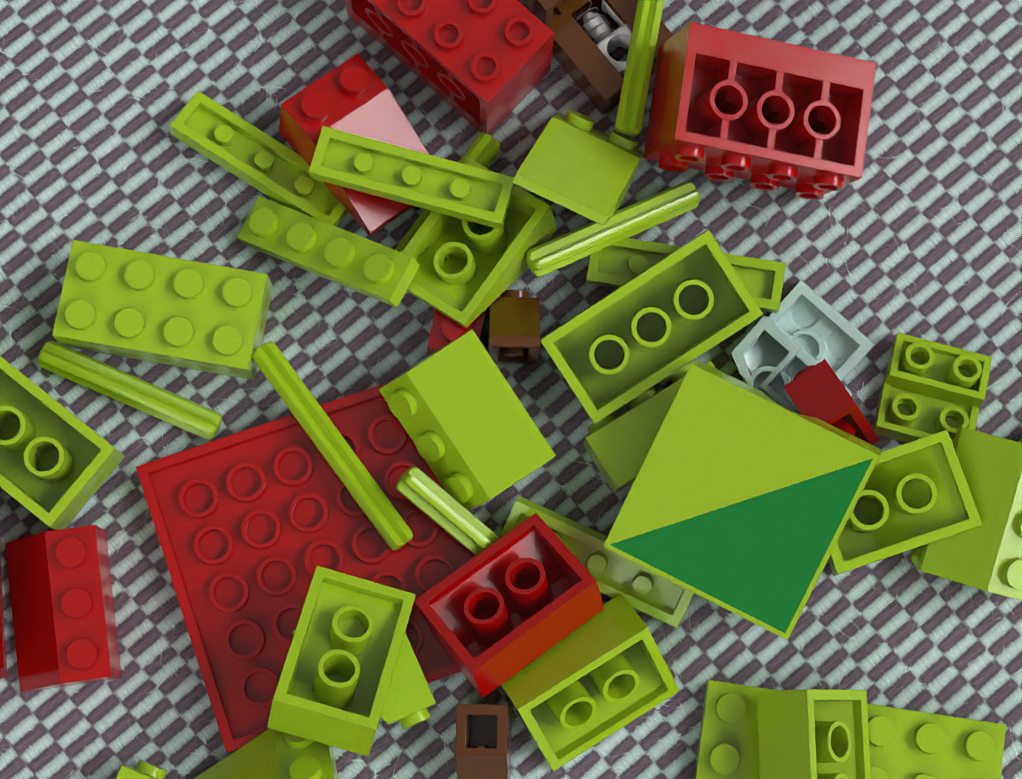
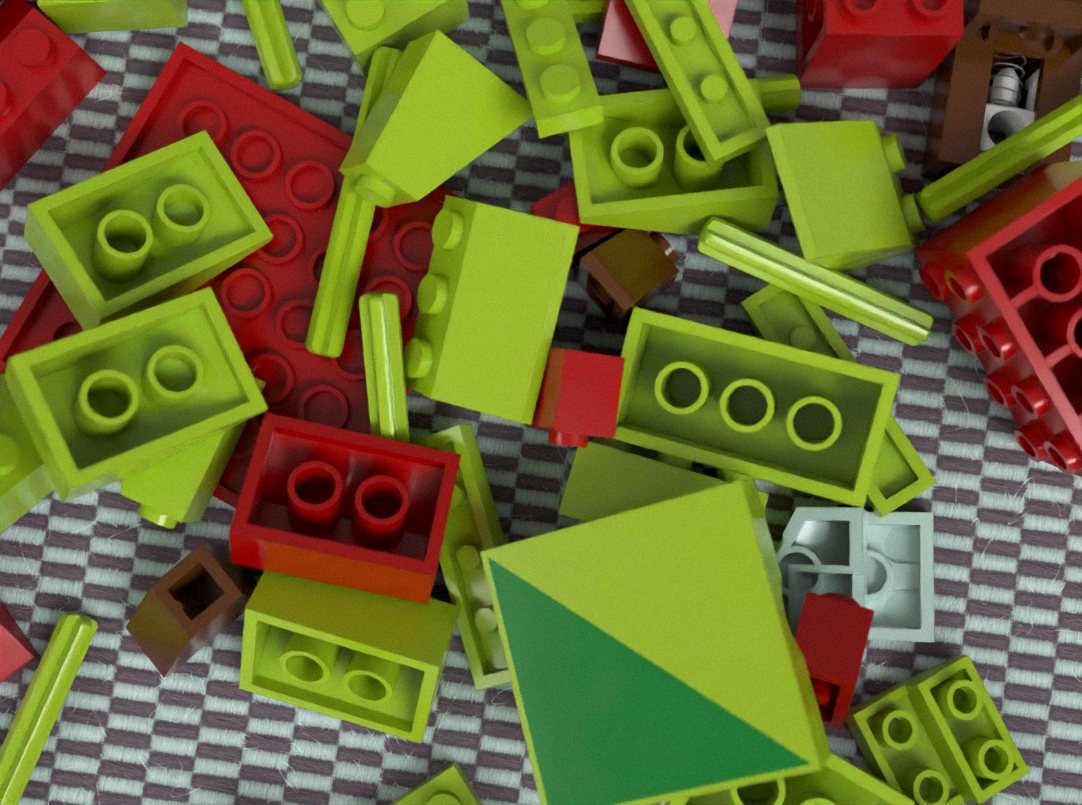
camera: 60 degrees right, 5 degrees up
(242, 584) = (144, 231): none -> lime slope
(327, 362) = (430, 122): none -> lime slope
(564, 415) = (578, 396): none -> red slope

